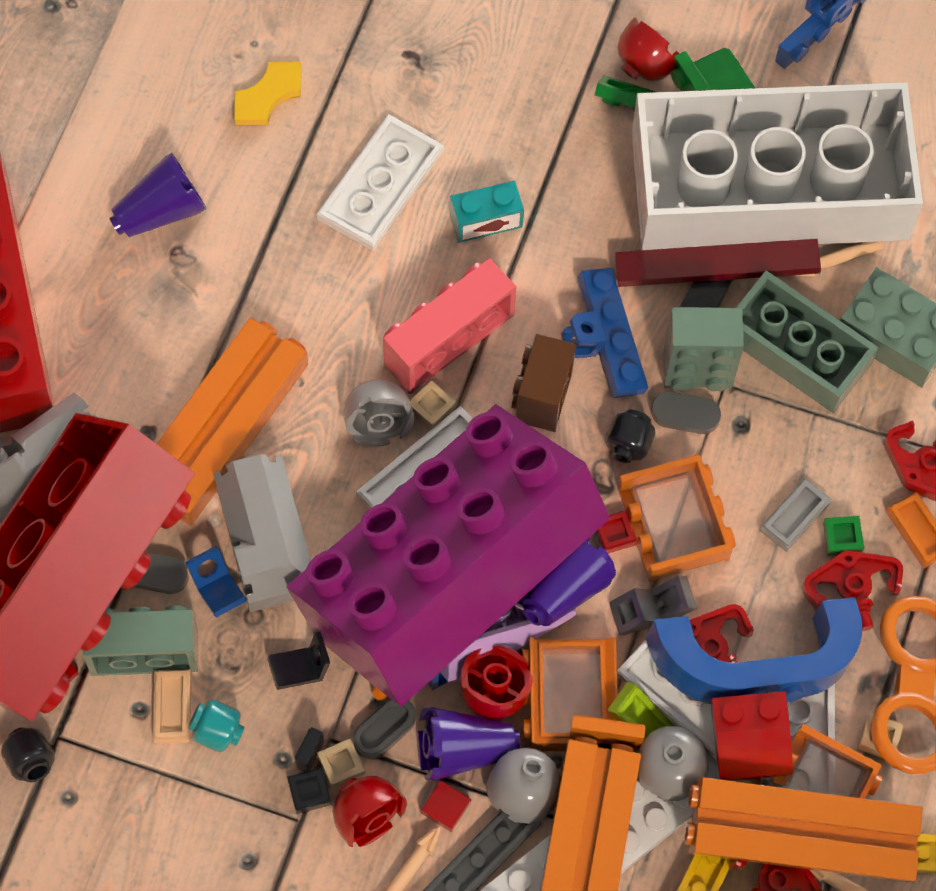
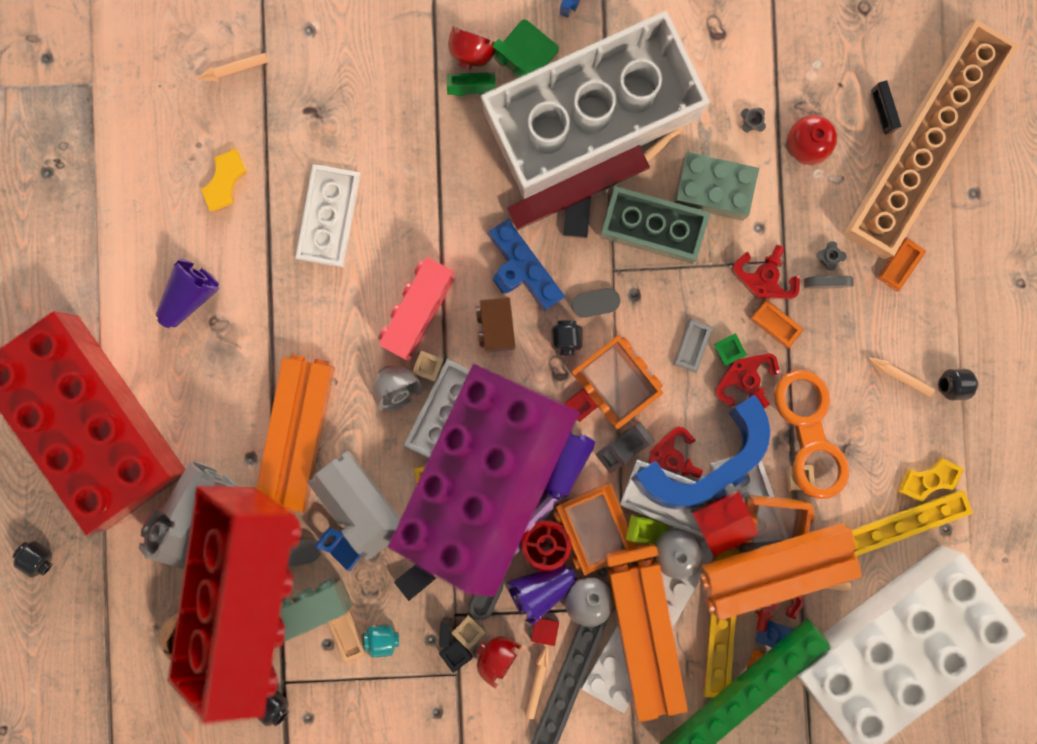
camera: 15 degrees left, 20 degrees up
(486, 211) = (408, 212): teal brick -> none
(703, 348) = (594, 261): sand green brick -> none

